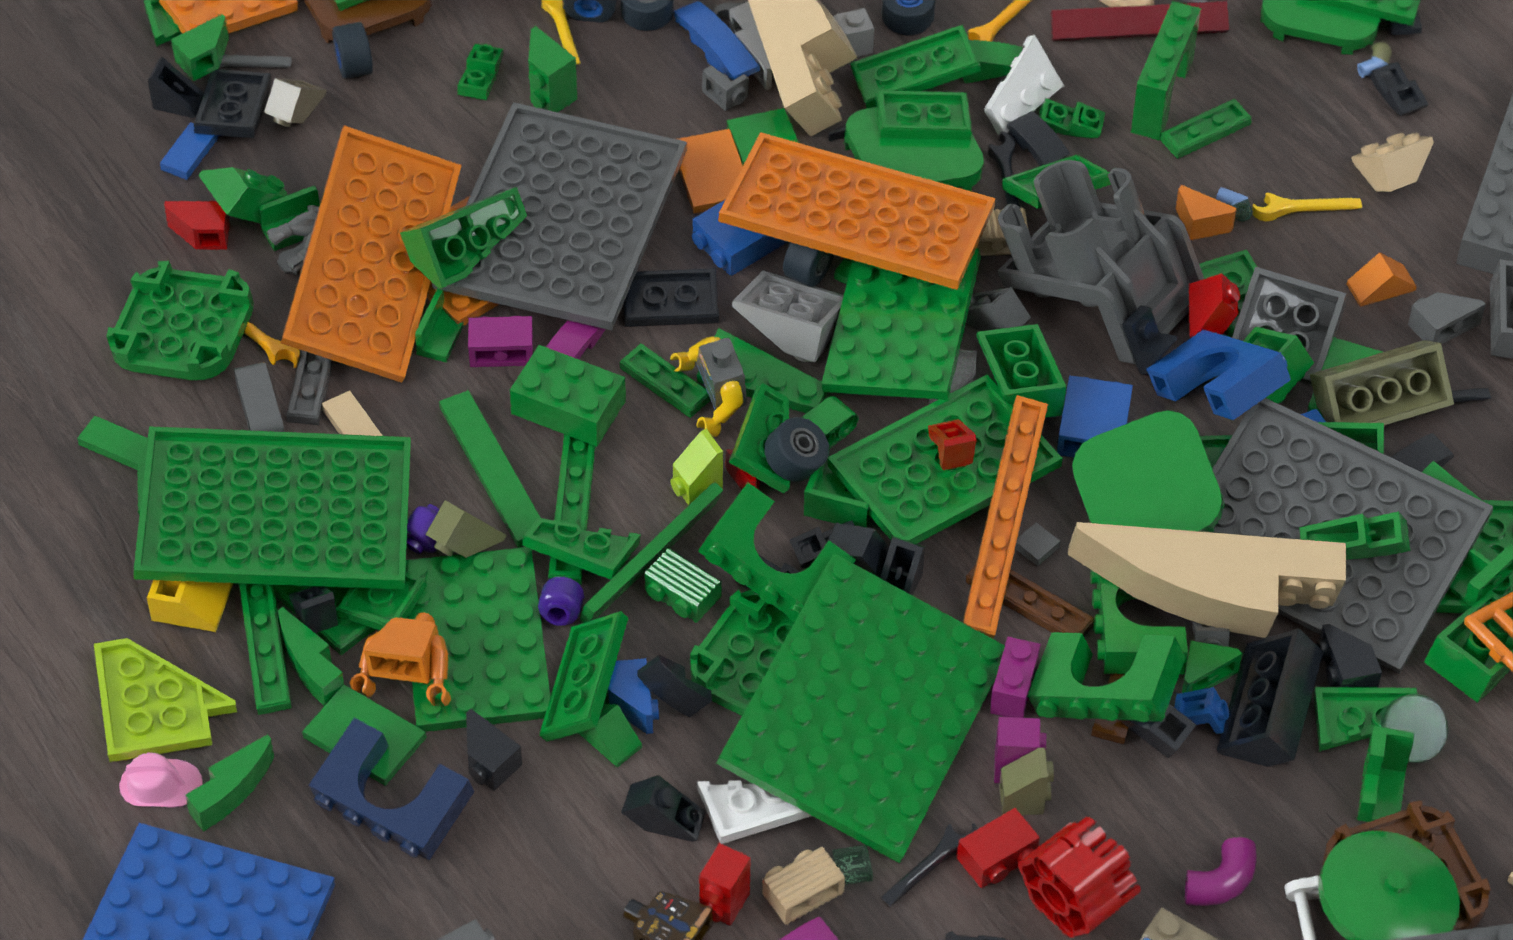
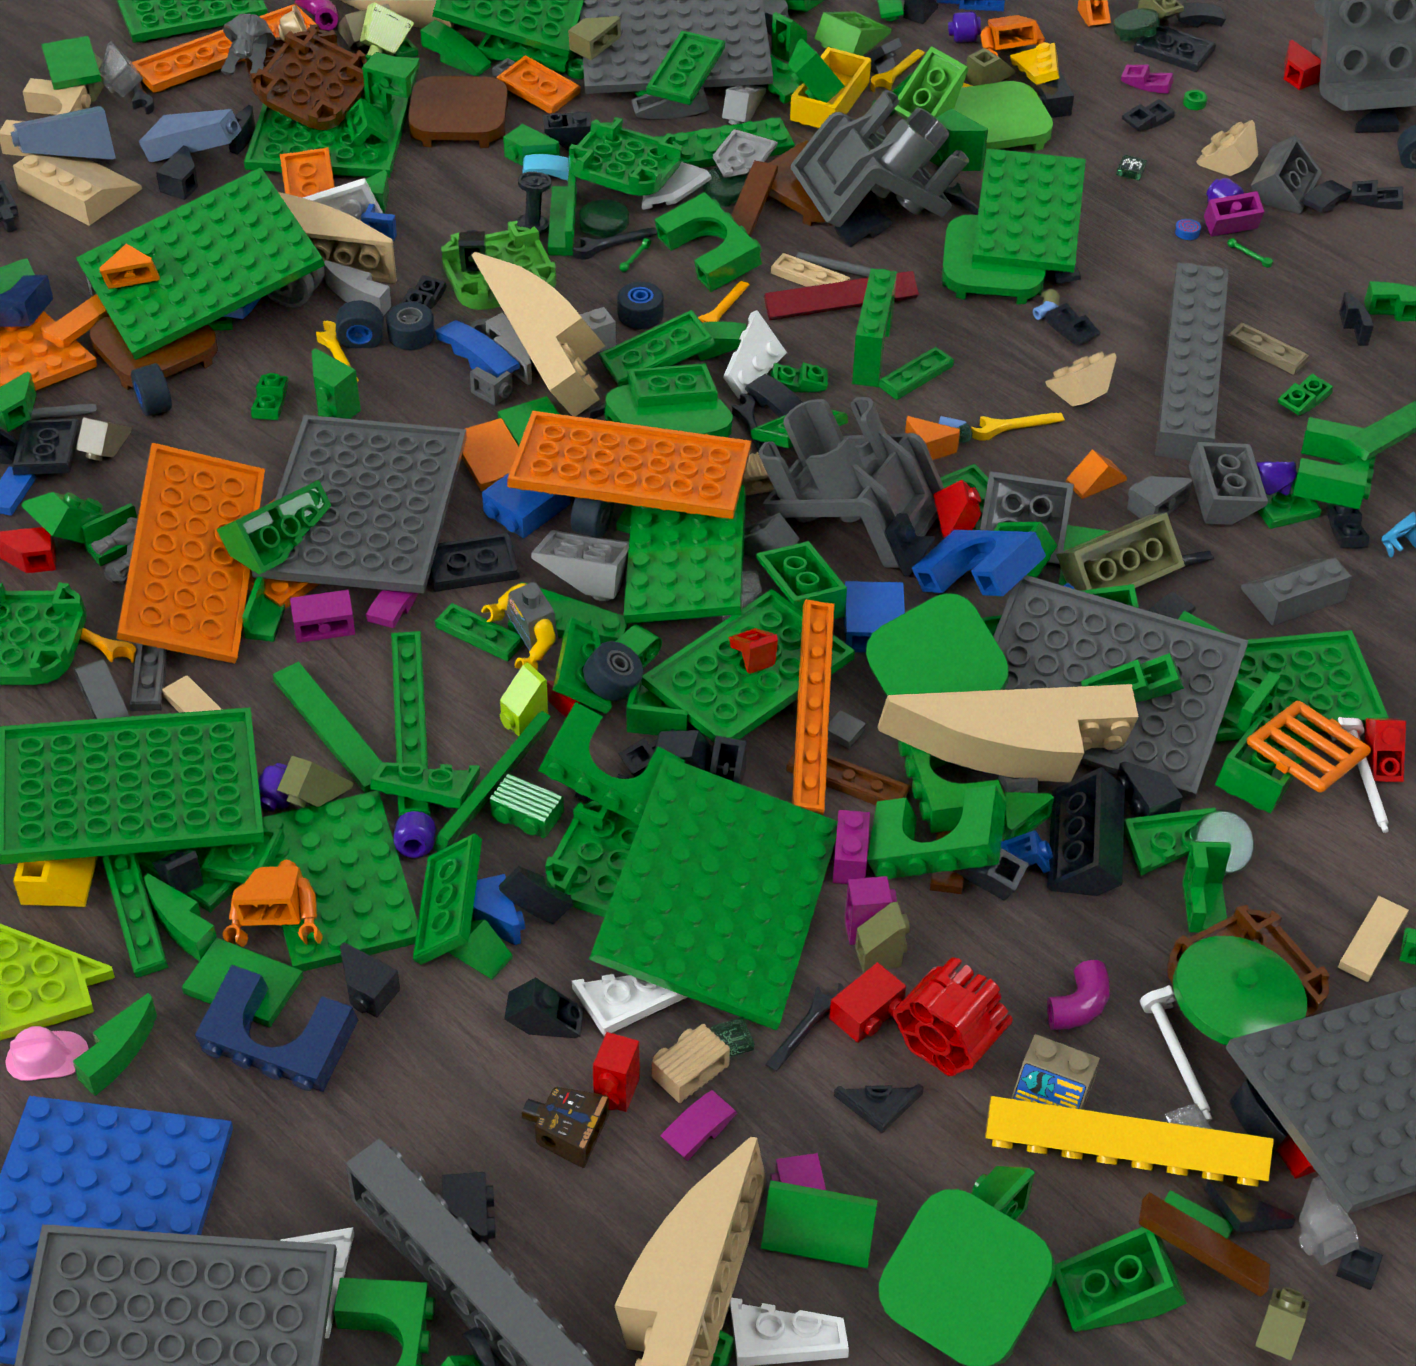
camera: 10 degrees left, 5 degrees down
(568, 395) = (392, 652): green brick -> none

